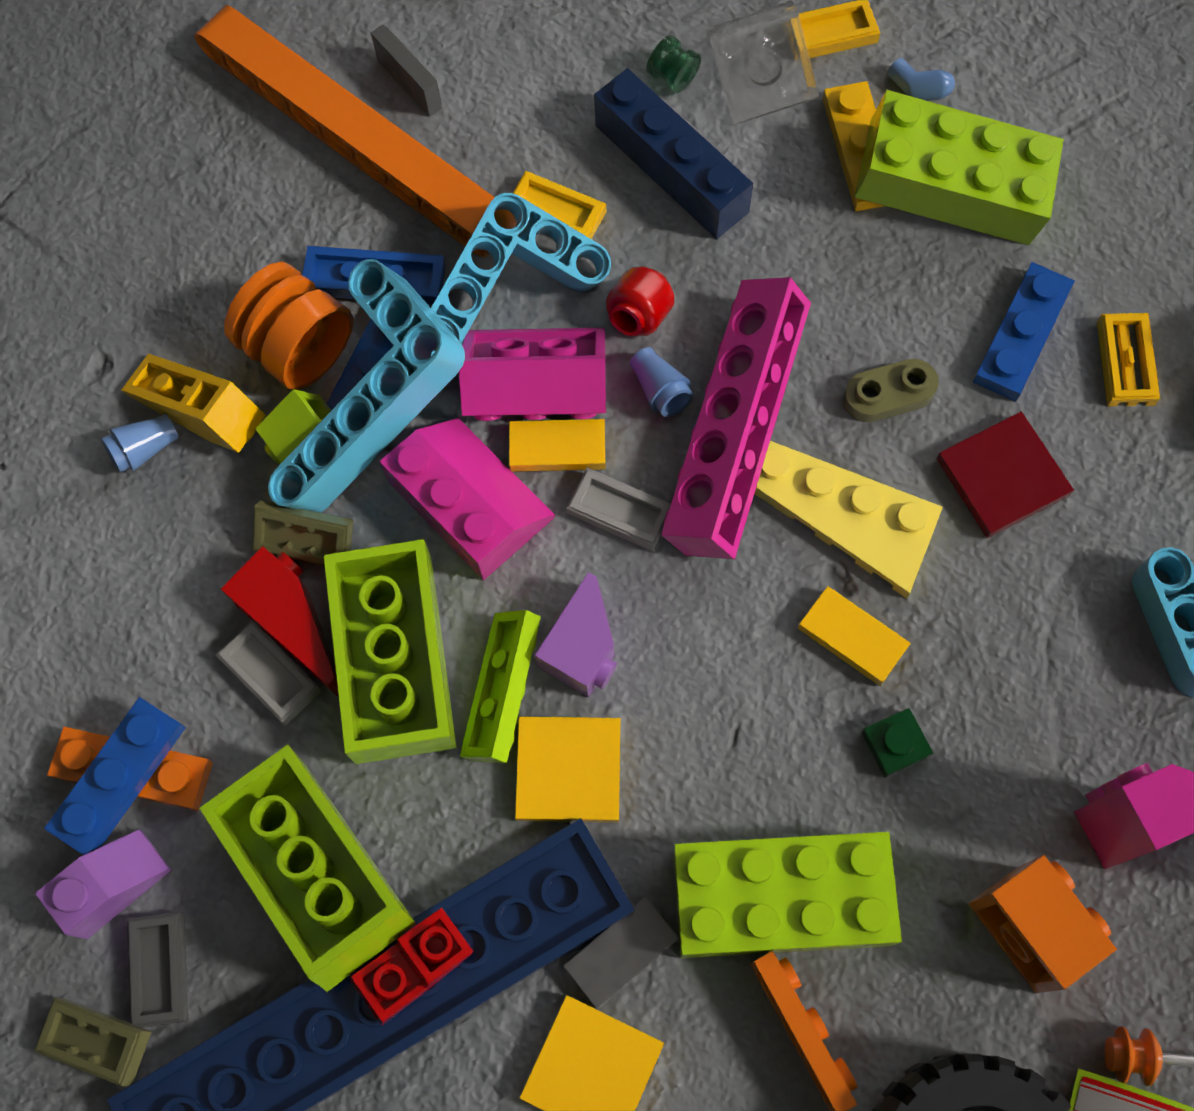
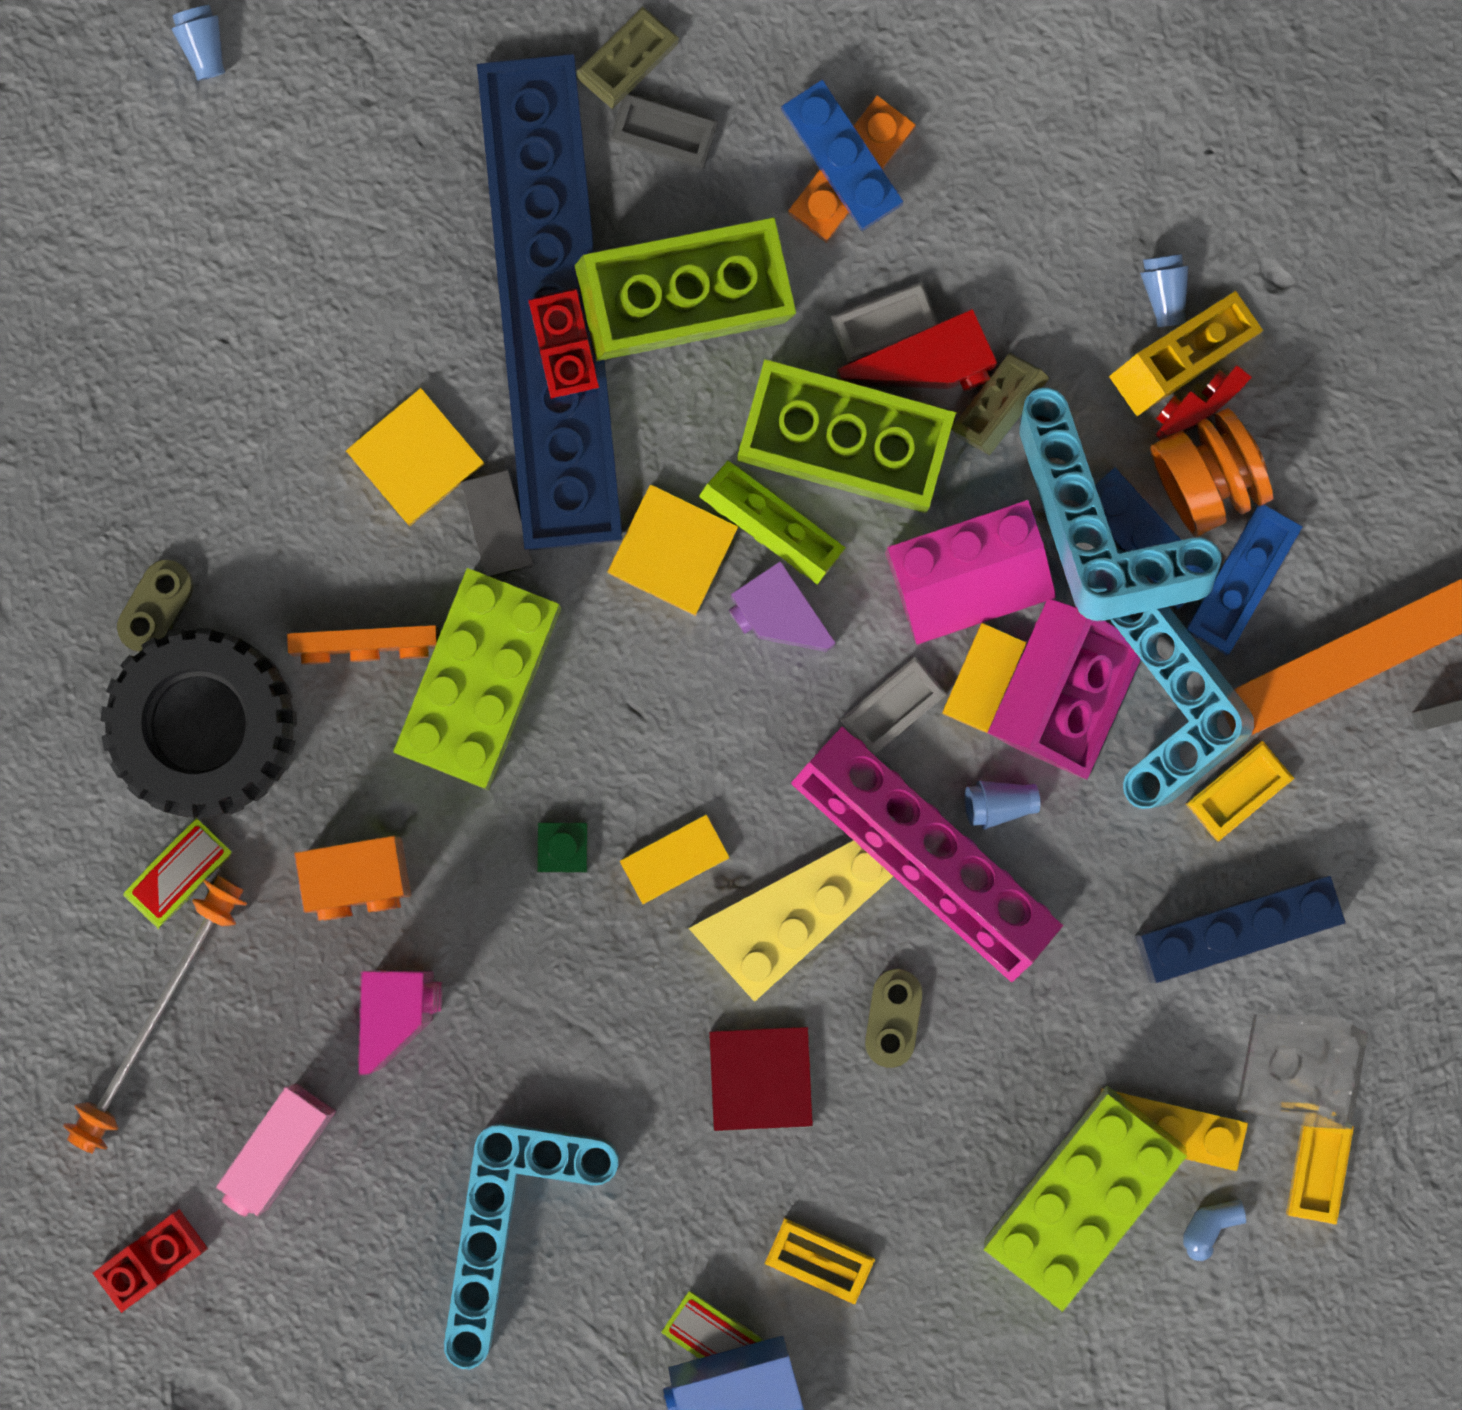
camera: 110 degrees right, 15 degrees up
(102, 884) = (756, 113): medium lavender slope -> none
(225, 360) = (1187, 413): none -> red slope
(291, 423) = (1105, 440): lime brick -> none
(639, 301) = (1091, 821): red head -> none
(673, 64) = (1346, 982): clear green wheel -> none
(1023, 331) = (894, 1178): blue plate -> none

